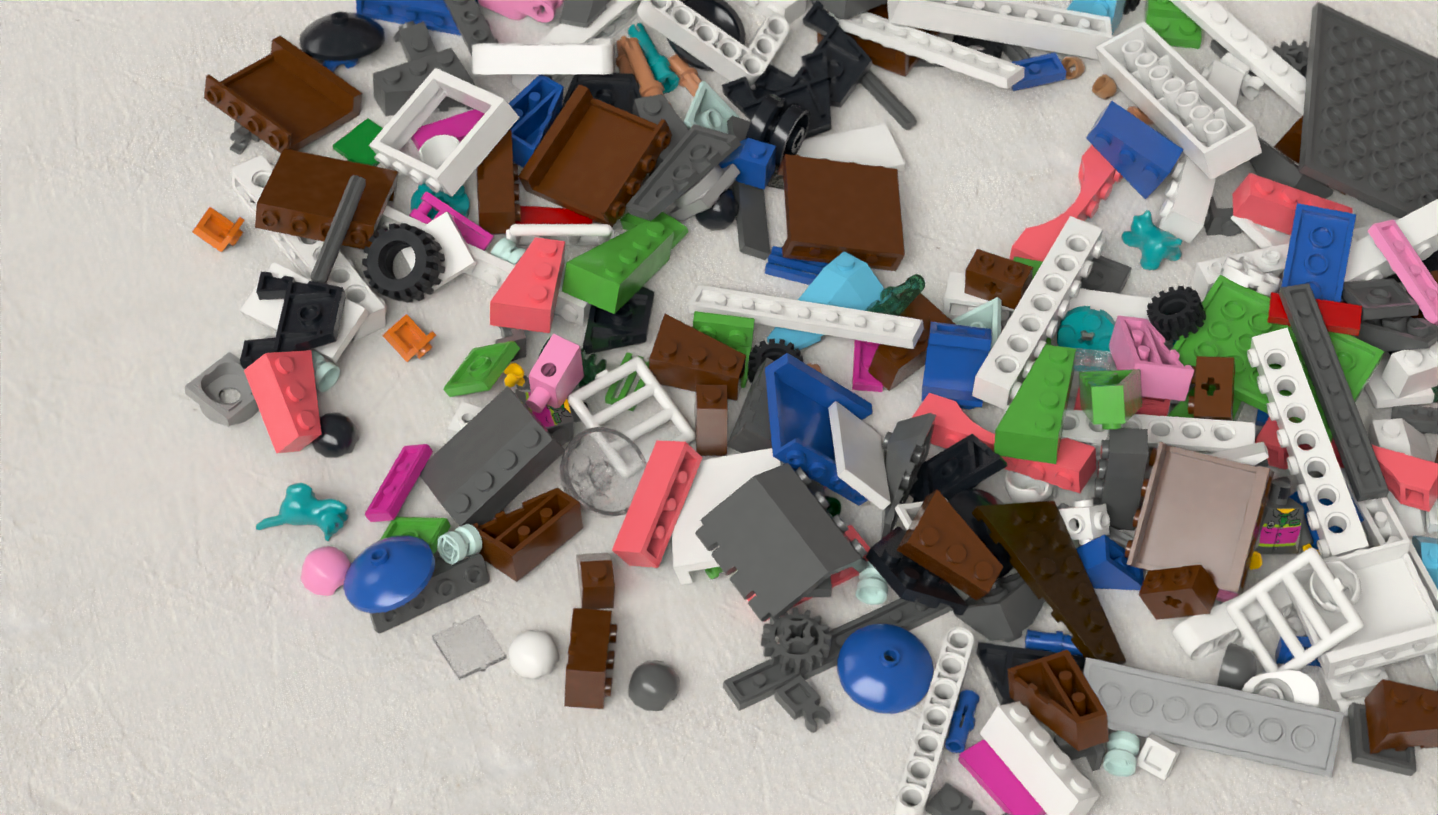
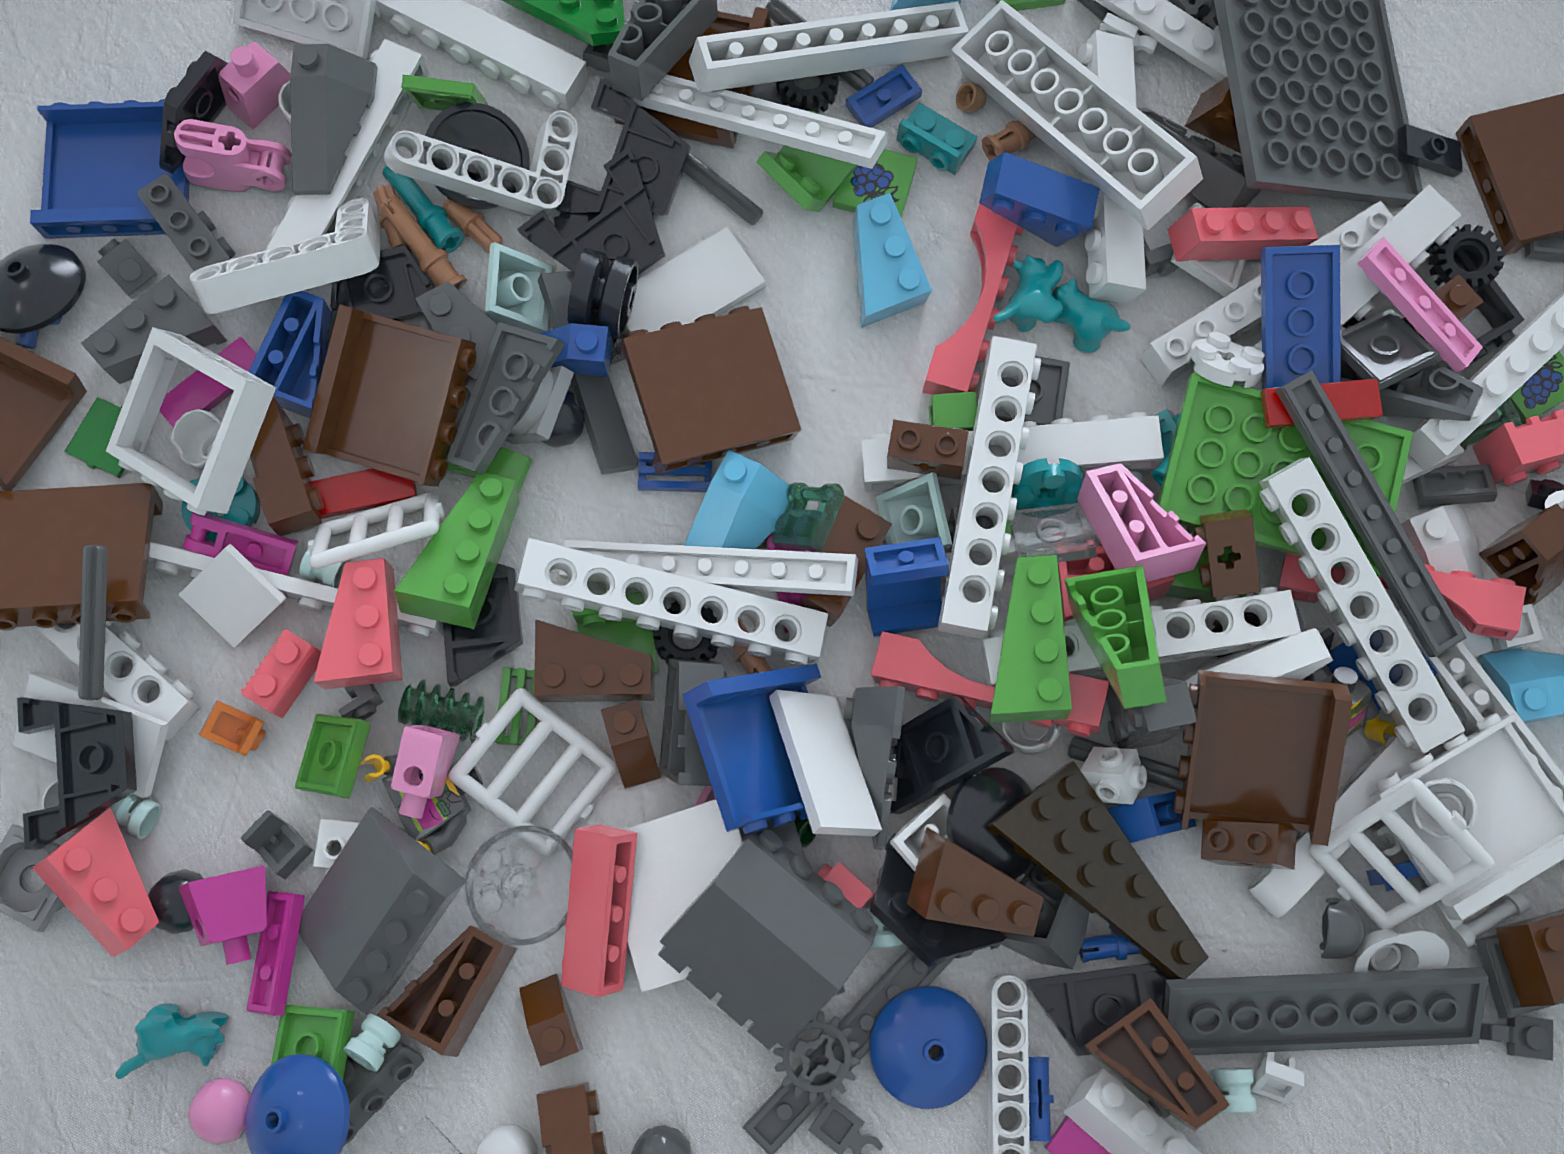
camera: 15 degrees left, 25 degrees up
(374, 439) = (228, 910): none -> dark pink torso
(381, 258) = (172, 644): black tyre -> none
(419, 415) = (277, 843): none -> dark grey bracket
(459, 313) = (282, 674): none -> coral brick
(769, 321) = (804, 624): none -> white brick
(964, 98) = (806, 175): none -> bright green bracket
(1004, 172) = (886, 262): none -> medium azure wedge
(1011, 124) = (890, 174): none -> bright green tile
(1067, 107) = (935, 138): none -> teal bracket
(1070, 62) = (932, 84): medium nougat hinge -> none
(1114, 216) = (1033, 295): none -> teal animal
(1188, 312) = (1146, 430): black tyre -> none
(1371, 785) = (1523, 1035): none -> dark grey plate

